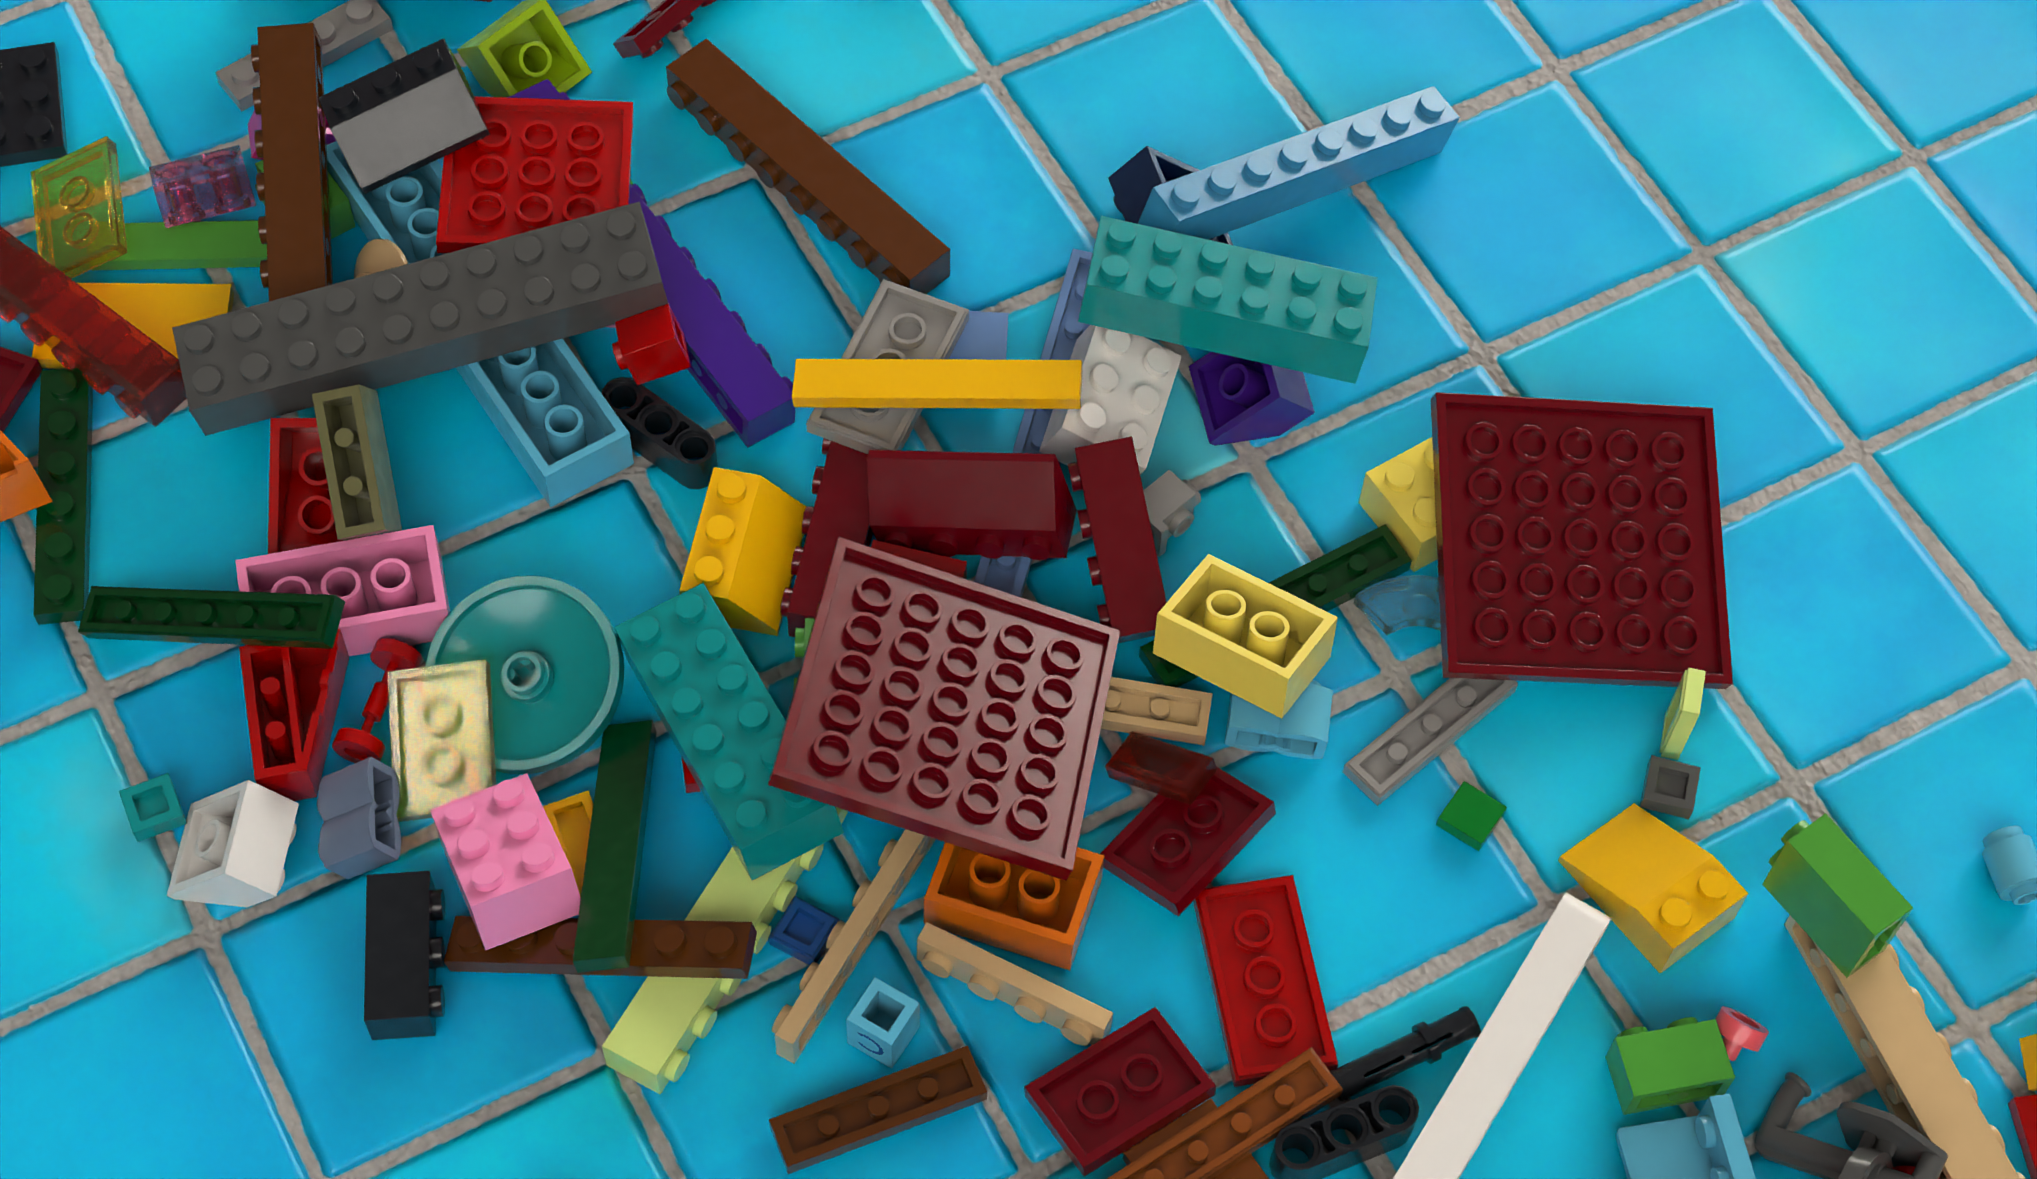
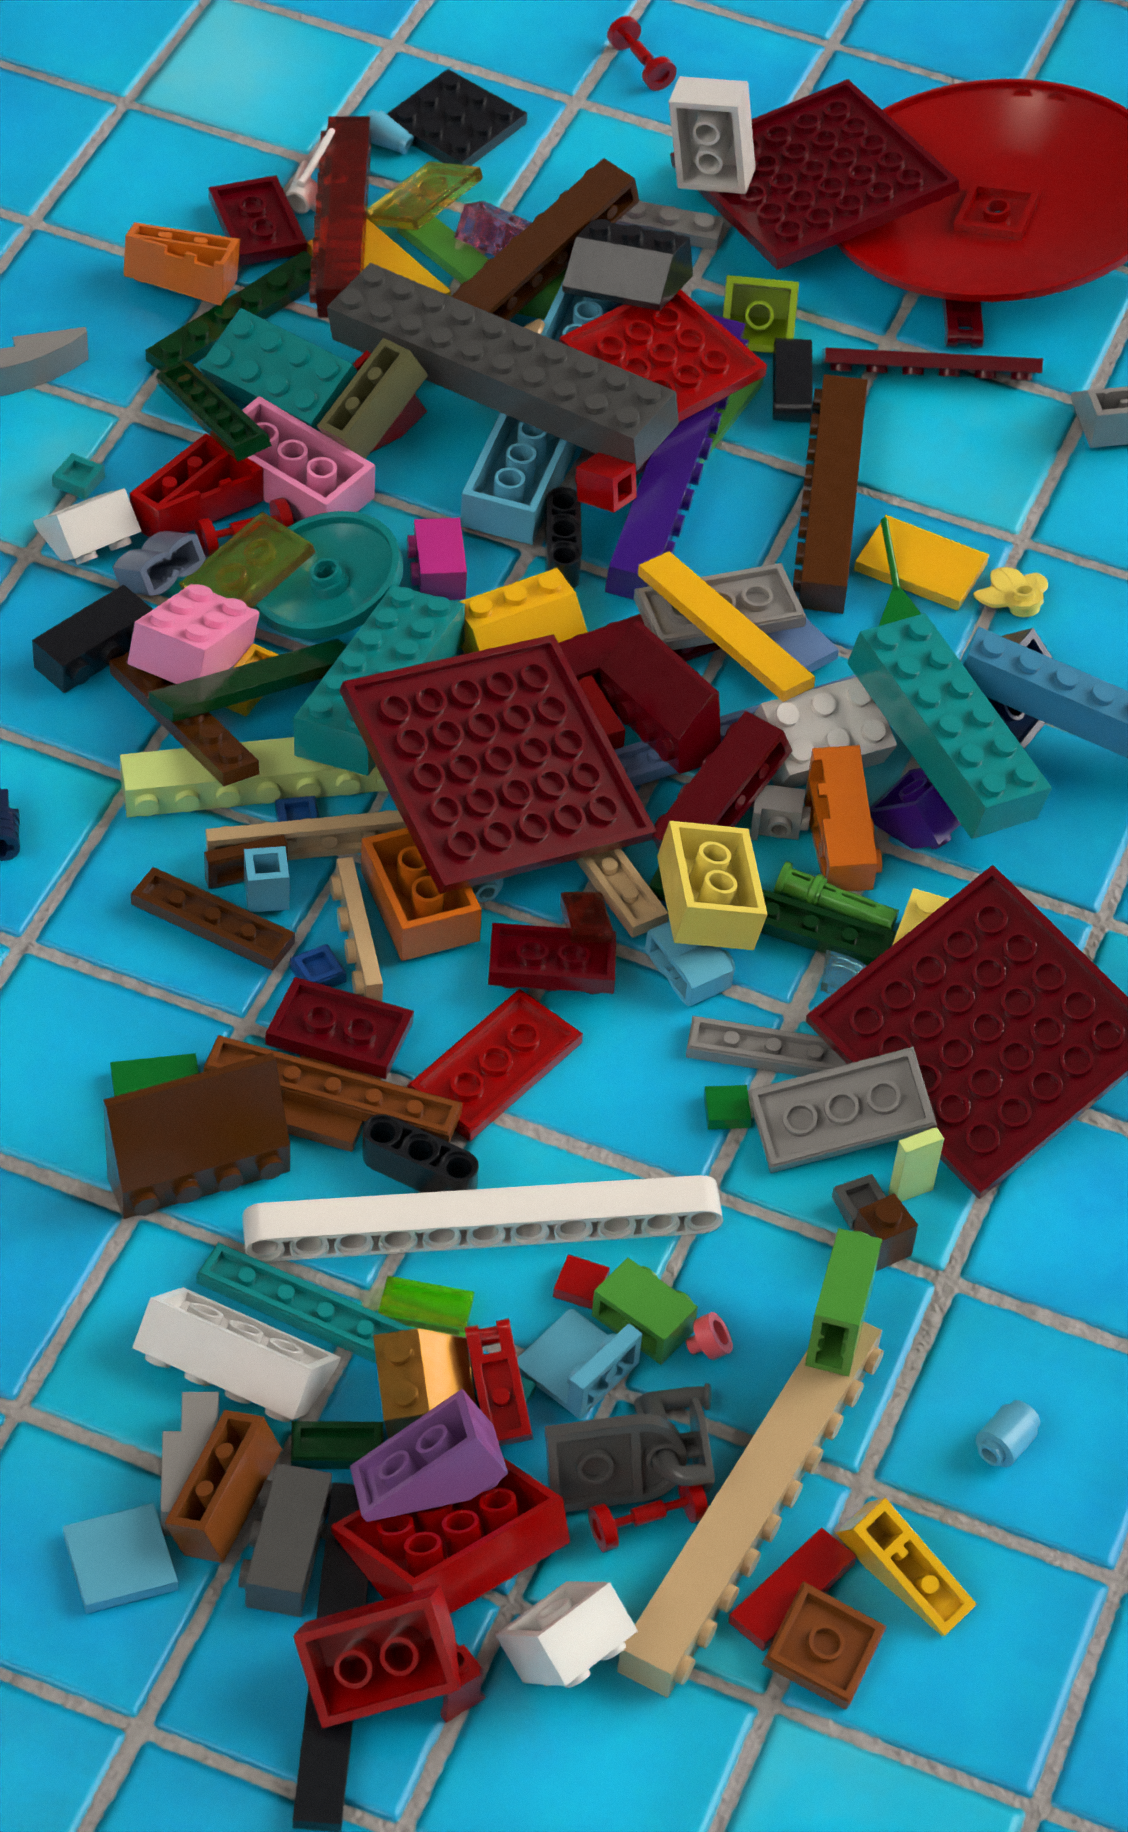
camera: 50 degrees right, 10 degrees down
(218, 514) = (269, 362): none -> teal brick
(586, 557) = (438, 558): none -> dark pink brick
(614, 76) = (792, 380): none -> black beam
(833, 1025) = (226, 864): none -> reddish brown tile
(950, 167) = (924, 562): none -> yellow tile
(994, 230) = (899, 604): none -> green piece
(1018, 1055) = (319, 967): none -> blue tile
(1051, 125) = (1014, 590): none -> light yellow plate
(1227, 467) = (842, 818): none -> orange wedge
(1282, 550) = (829, 897): none -> bright green pin
(1421, 1045) = (513, 1158): black pin -> none
(1567, 725) = (841, 1109): none -> light grey tile
(1586, 1096) = (579, 1280): none -> red tile
(1654, 885) = (774, 1236): yellow slope -> none
(1726, 795) = (891, 1223): none -> reddish brown brick

